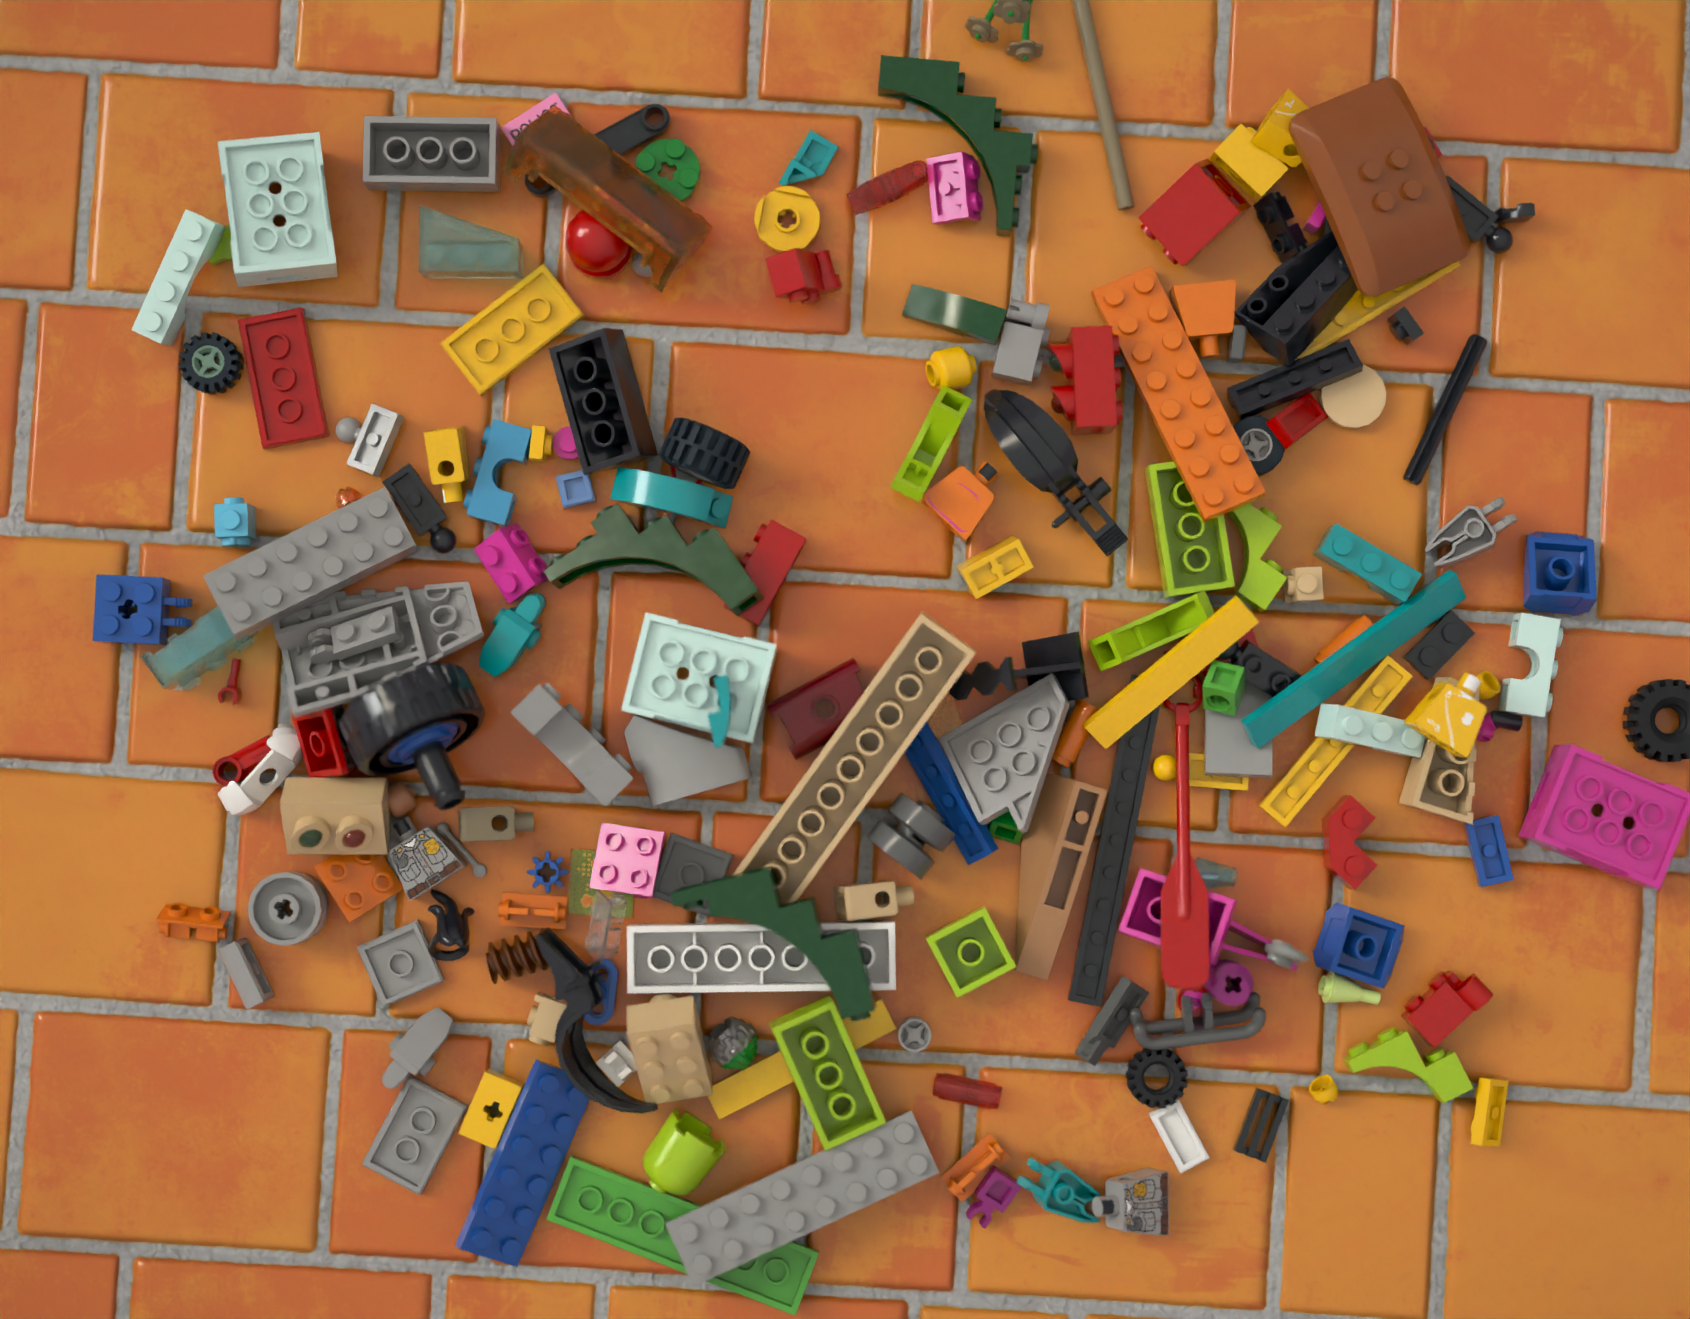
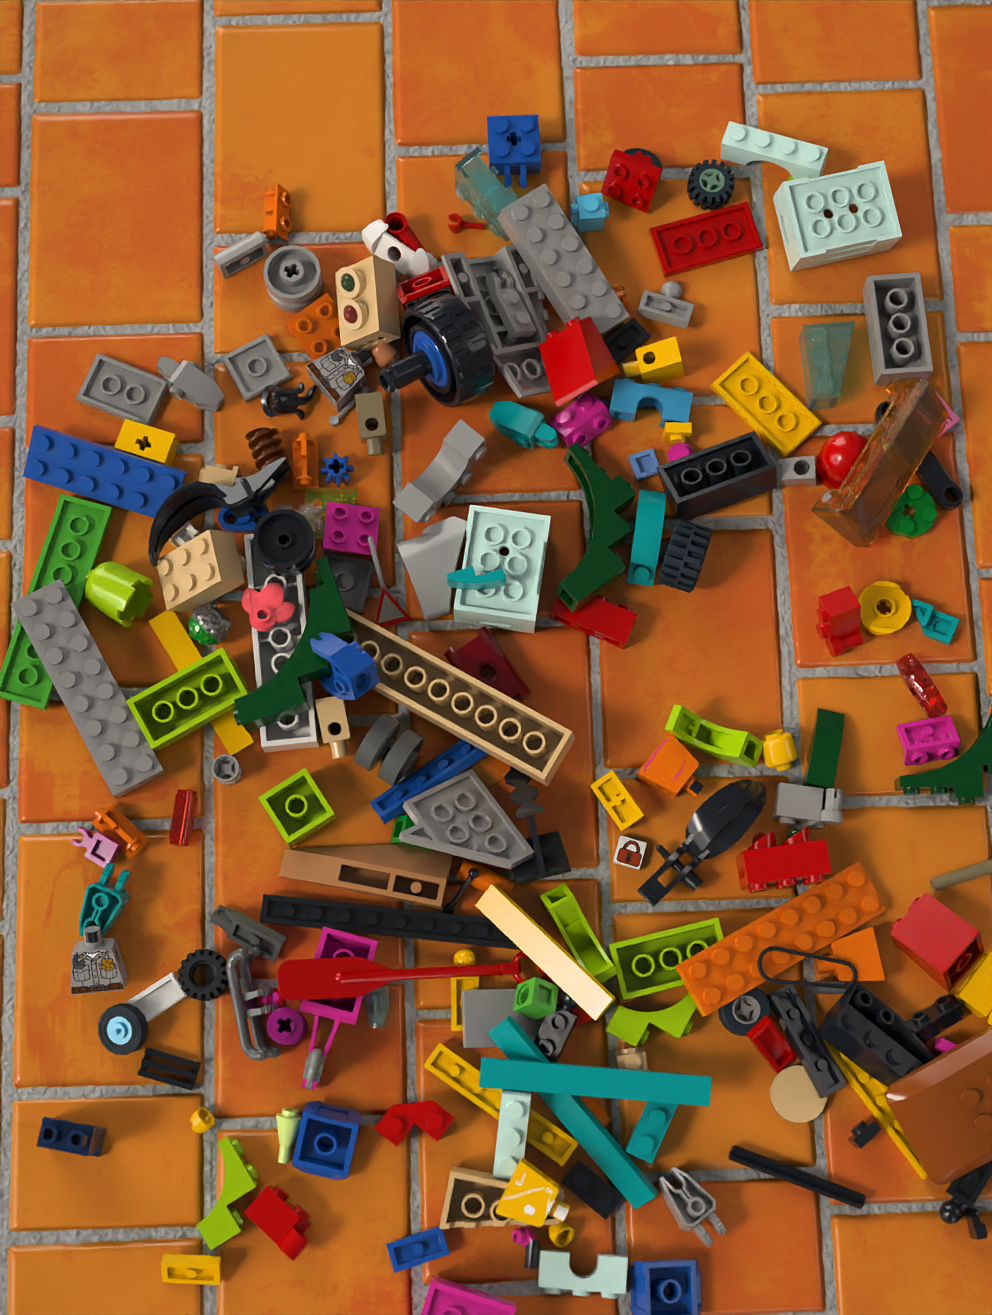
camera: 85 degrees right, 10 degrees down
(192, 459) = (633, 178): none -> red plate
(441, 559) = (576, 359): none -> red slope
(604, 302) = (797, 471): none -> light grey leg
(630, 951) = (271, 539): none -> black wheel
(719, 968) = (269, 603): none -> coral plate
(731, 822) = (388, 611): none -> light grey piece
(821, 873) = (352, 667): none -> blue piece
(1056, 560) = (629, 852): none -> tile
(1102, 779) = (449, 908): none -> black hinge
(1212, 1176) = (122, 1029): none -> black wheel
(1235, 369) = (804, 983): none -> black piece
(1326, 629) = (595, 1081): none -> teal tile
(1336, 1242) = (71, 1137): none -> dark blue hips

